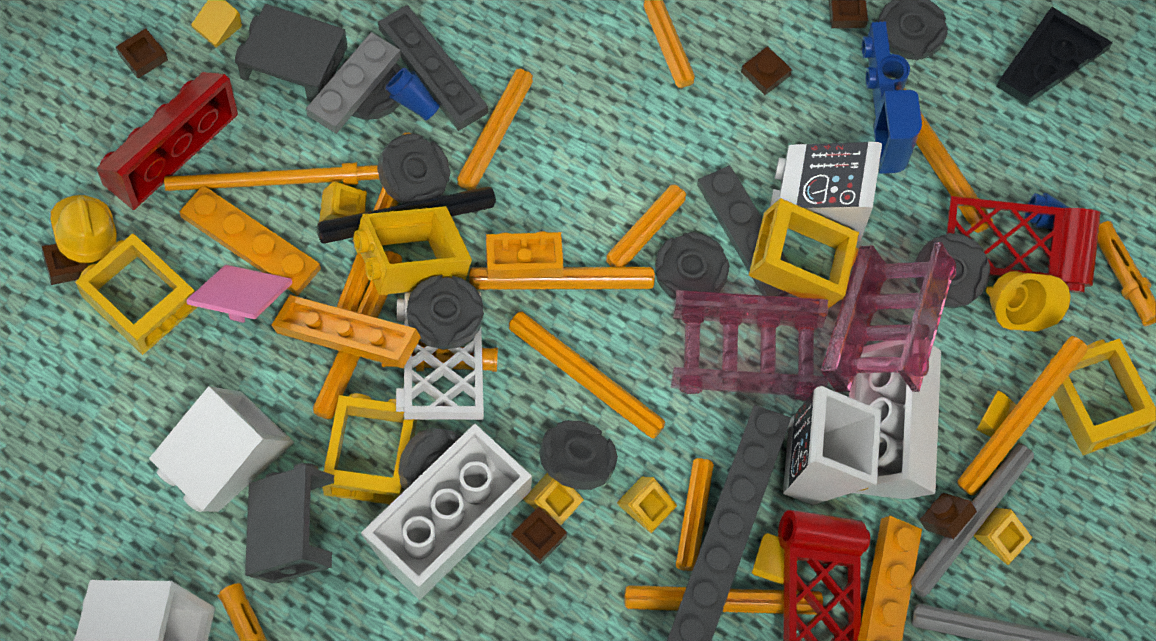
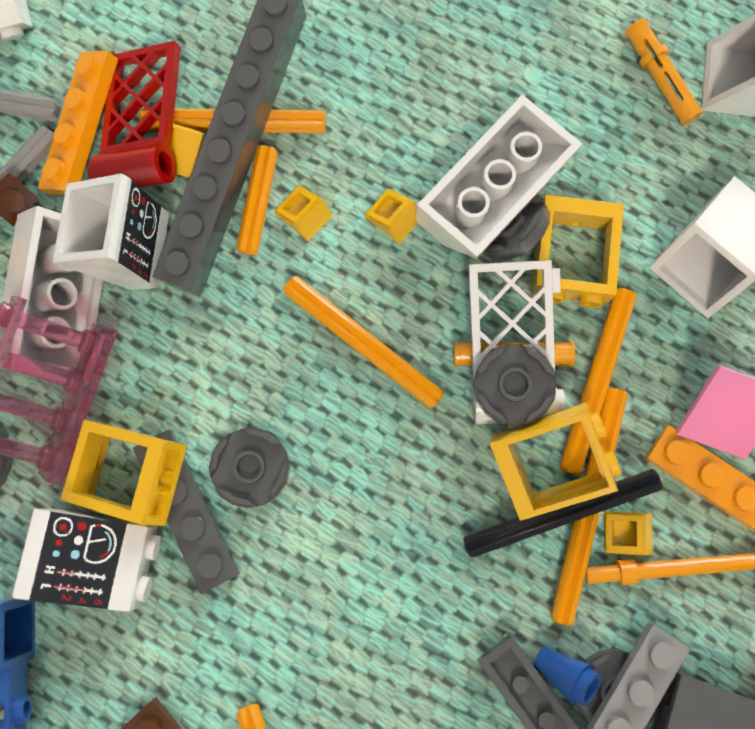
camera: 175 degrees left, 15 degrees up
(280, 525) = (662, 160): dark grey panel -> none
(346, 331) = (615, 365): light orange plate -> none
(413, 169) = (558, 573): dark grey tile -> none
(495, 130) = (466, 638): light orange axle -> none
(524, 255) = (431, 463): light orange bracket -> none
(539, 535) = (406, 172): reddish brown plate -> none
(572, 279) = (388, 450): light orange axle -> none
(578, 455) = (370, 249): dark grey tile -> none
(646, 226) = (297, 514): light orange axle -> none
(768, 314) = (209, 407): clear pink fence -> none

